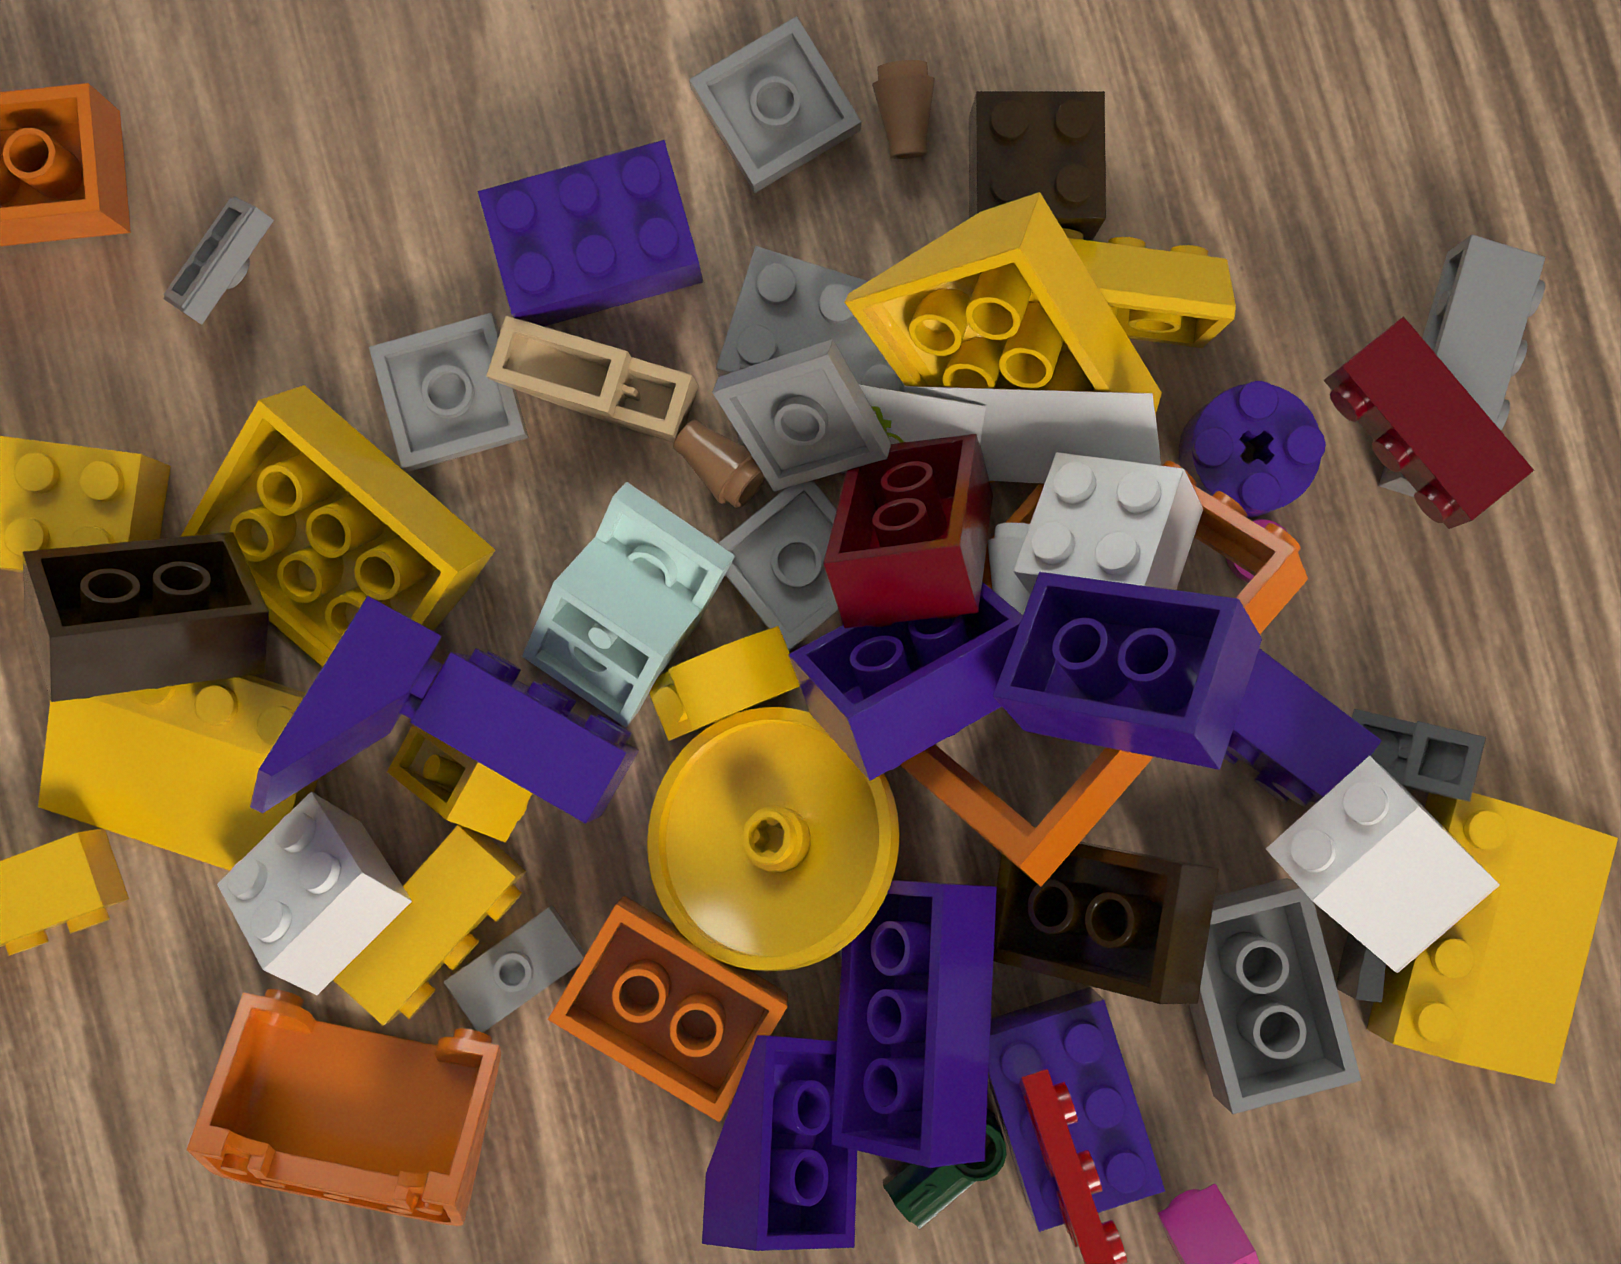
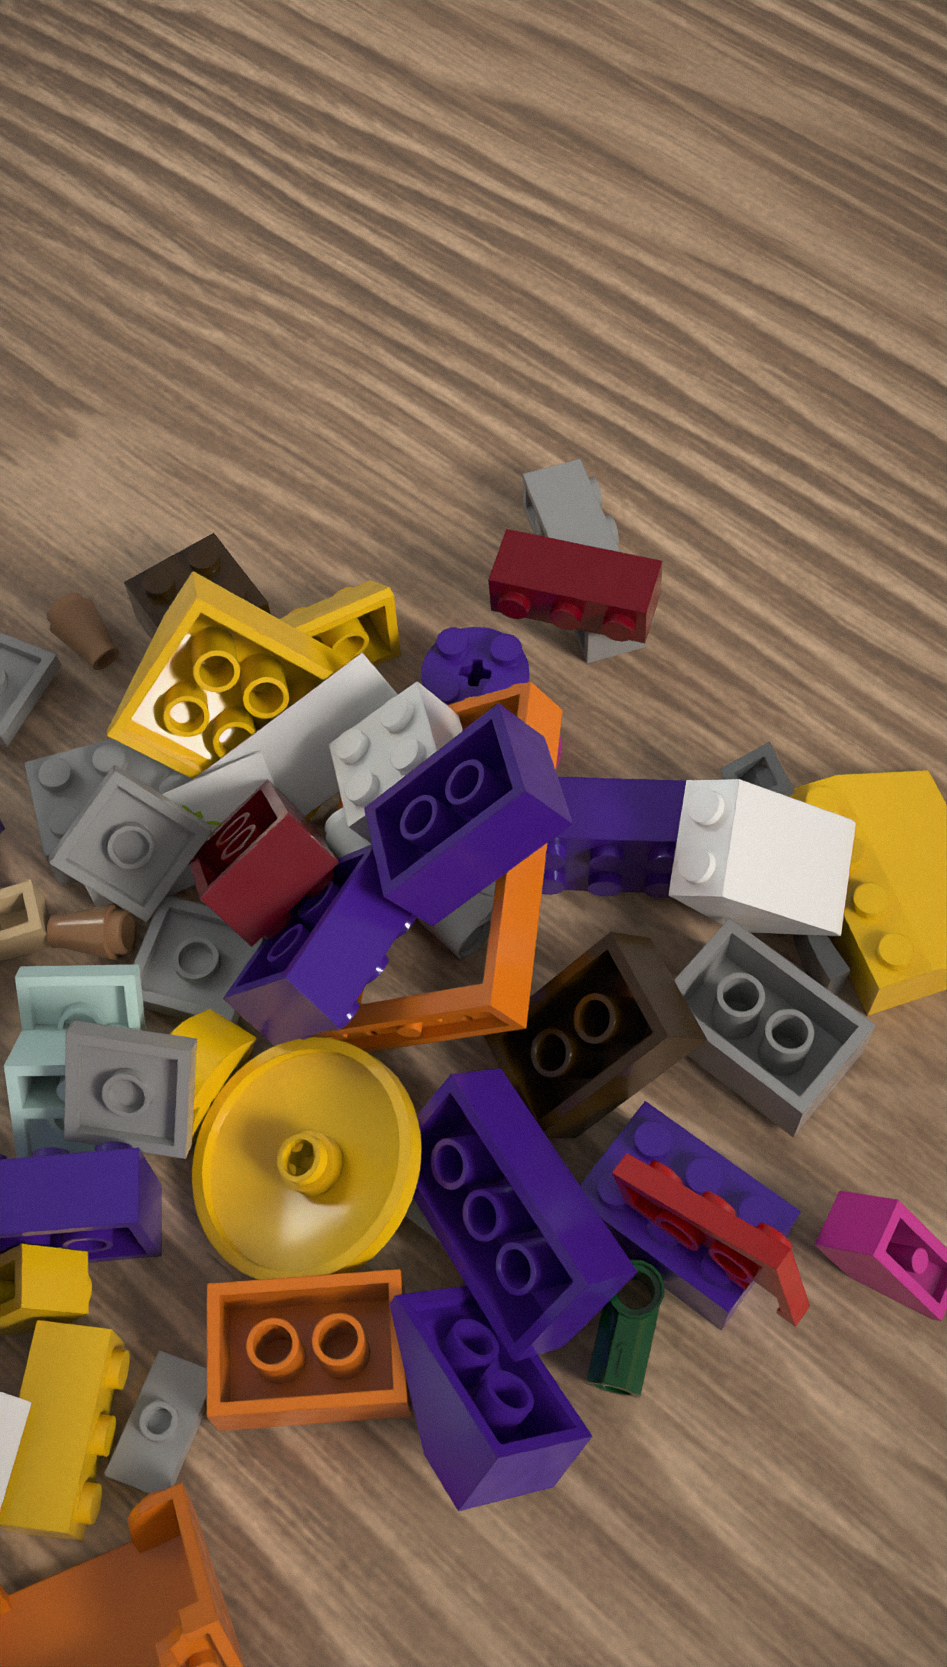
camera: 25 degrees left, 25 degrees down
(652, 687) = (129, 1088): none -> light grey plate

